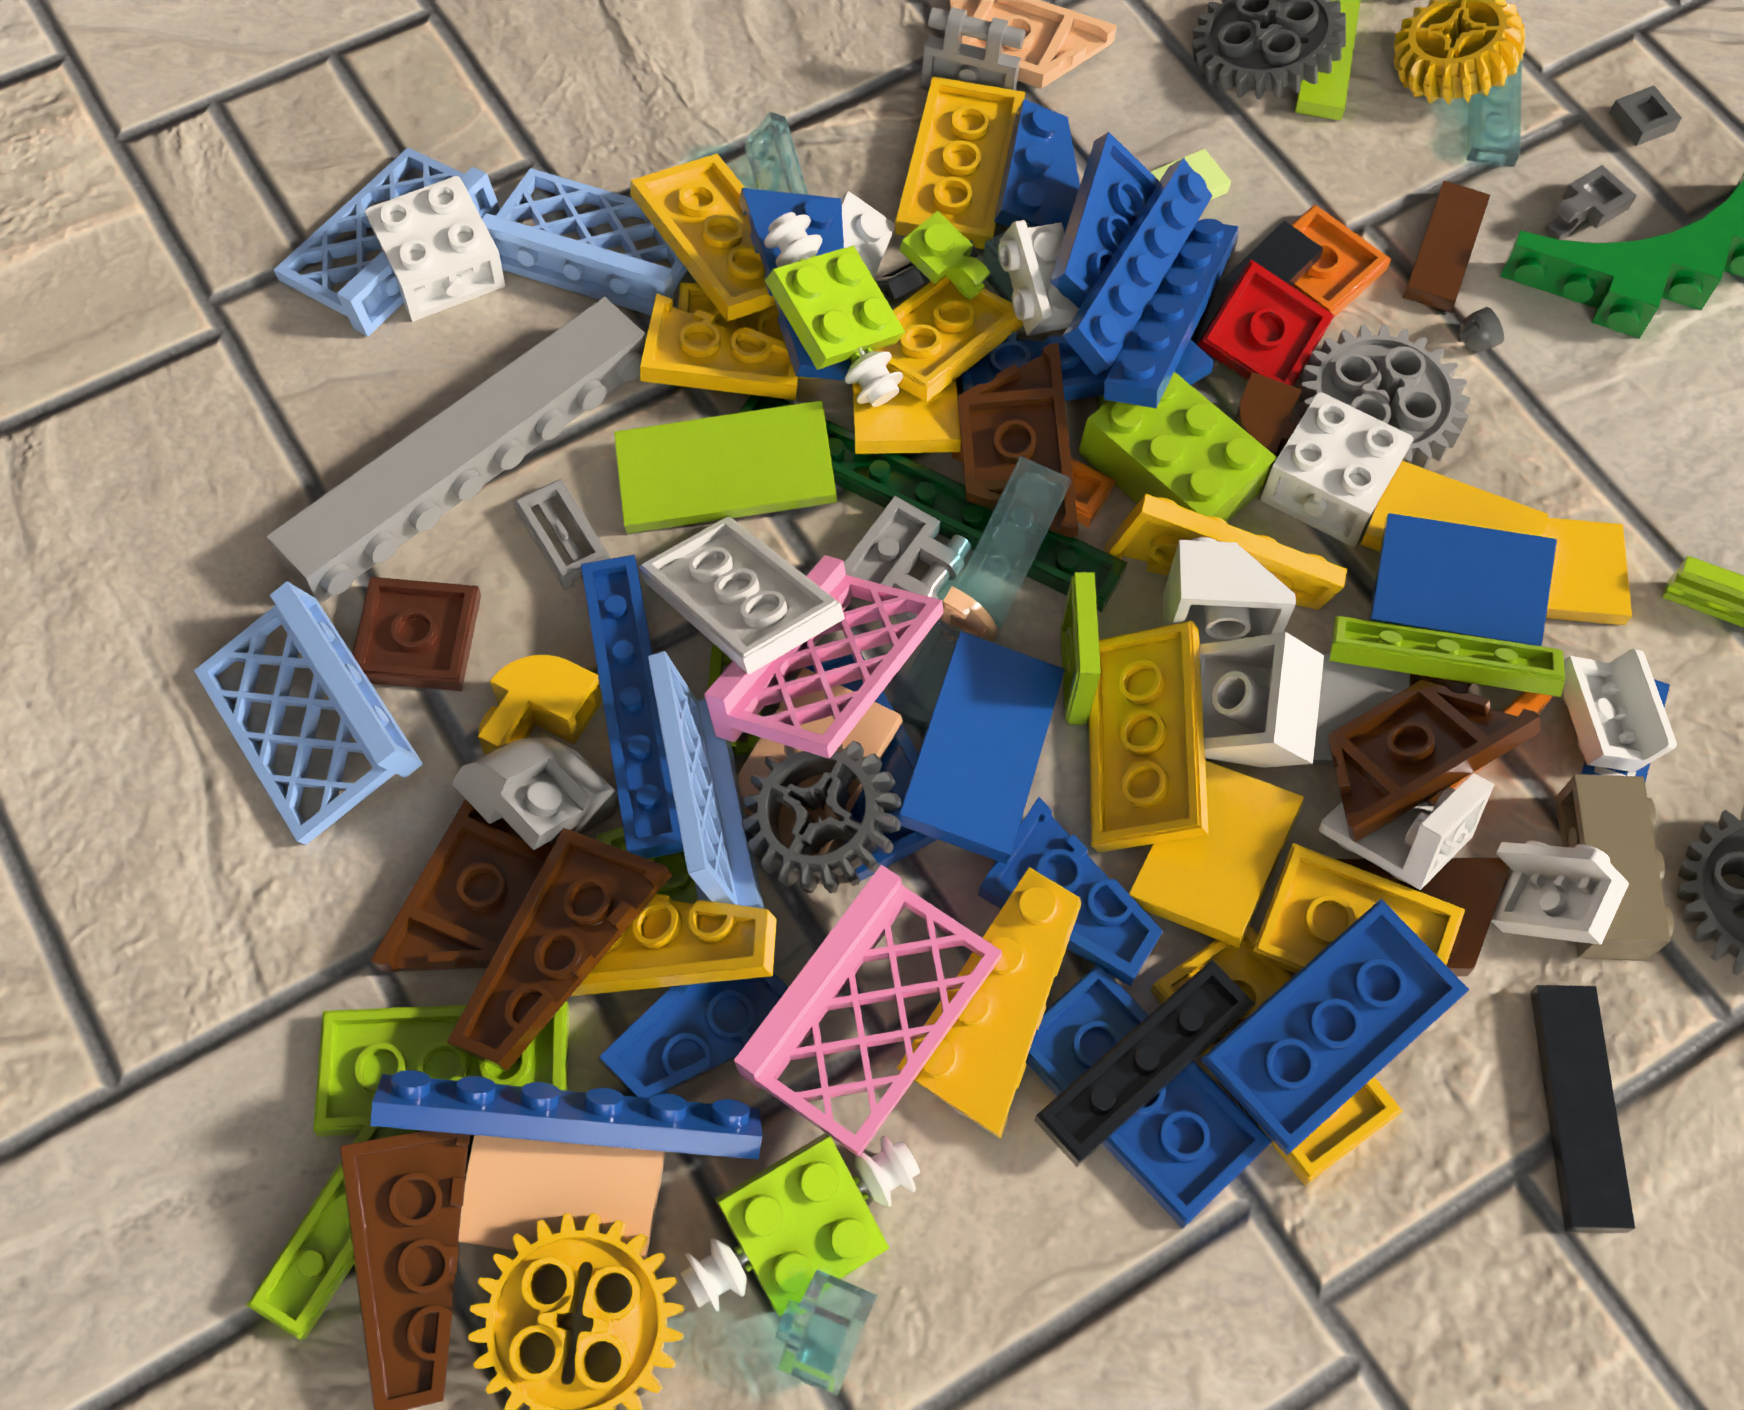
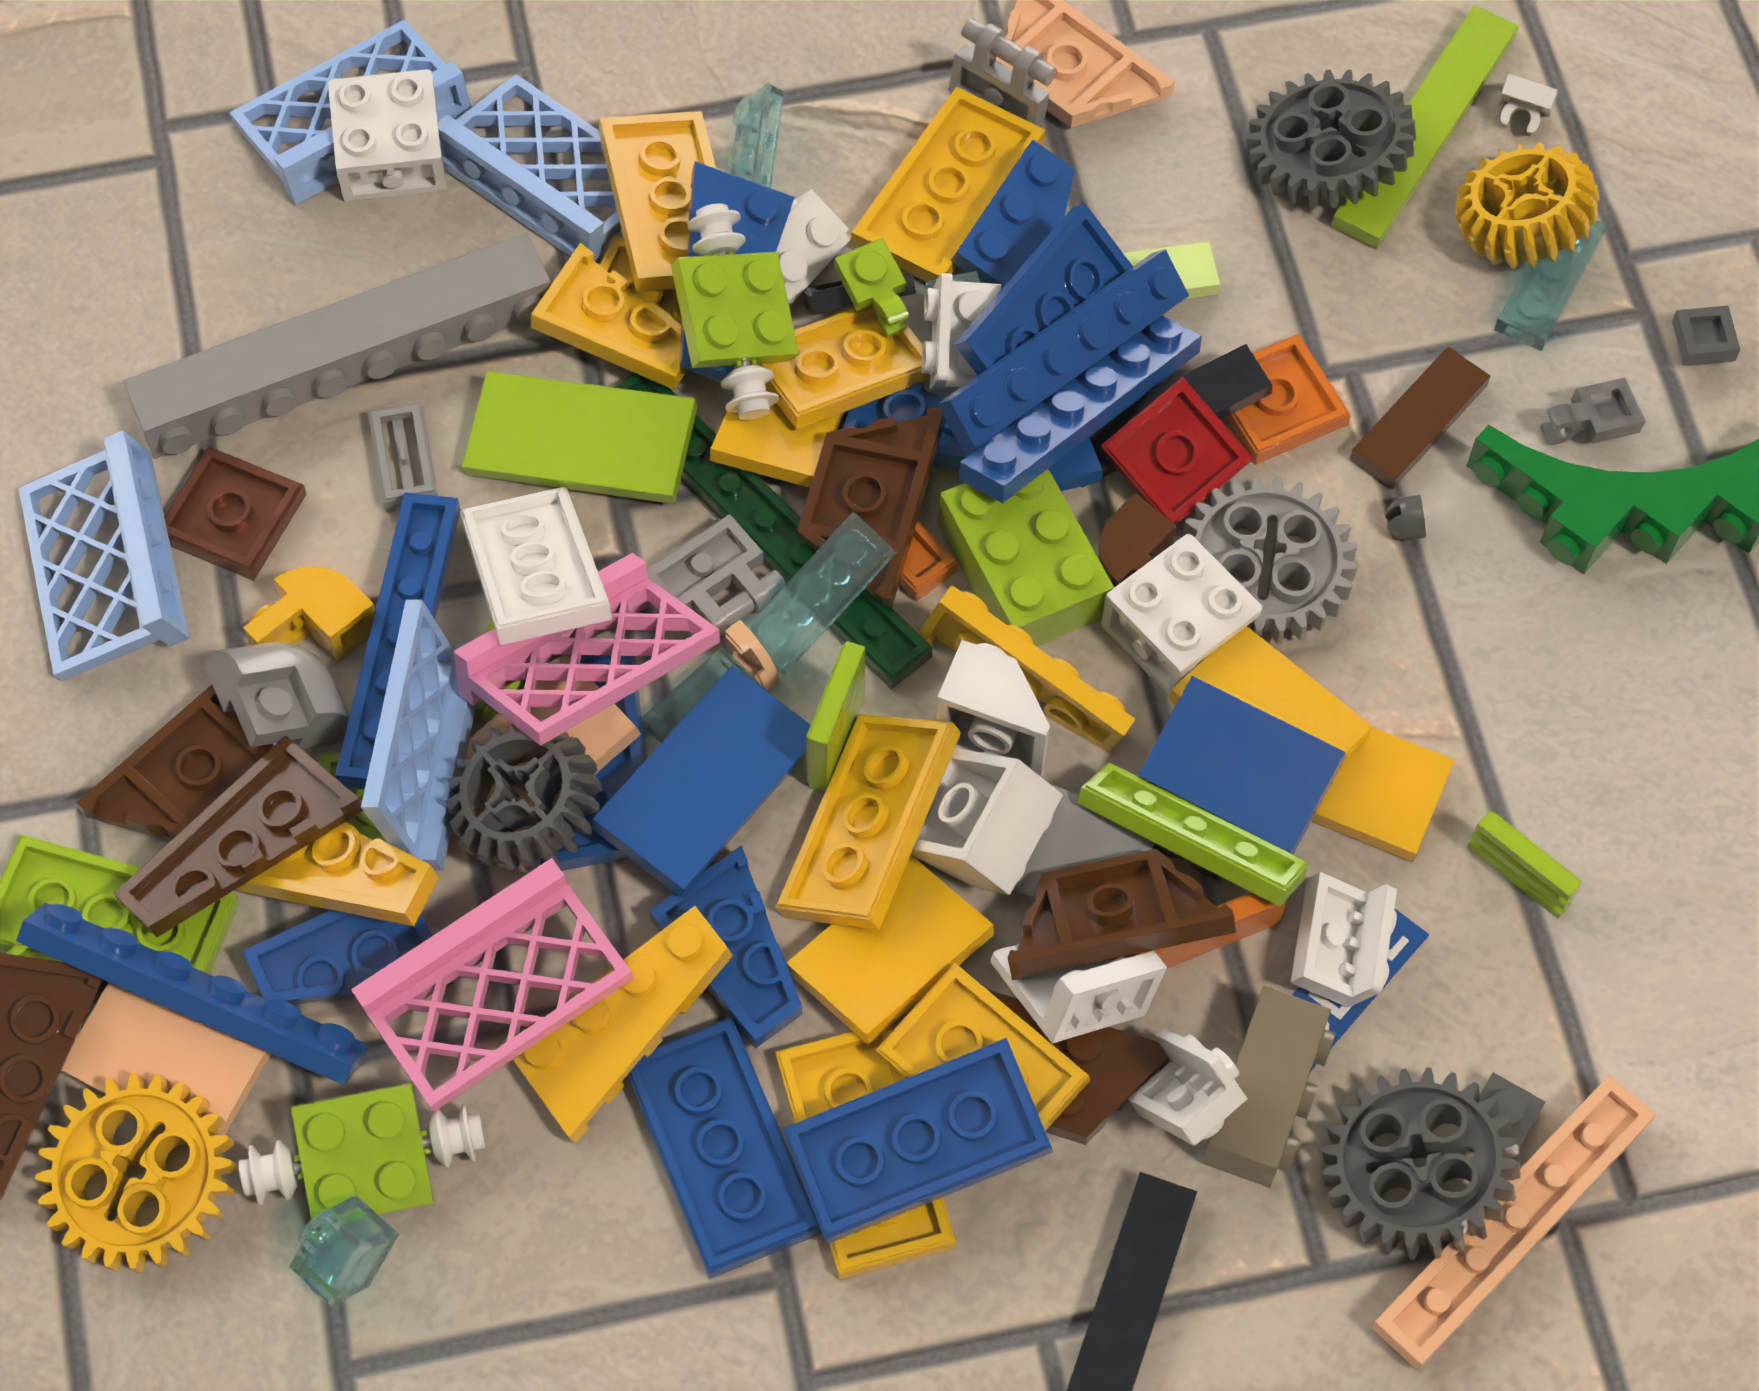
camera: 20 degrees right, 0 degrees up
(1143, 1063) = (729, 1117): black tile -> none

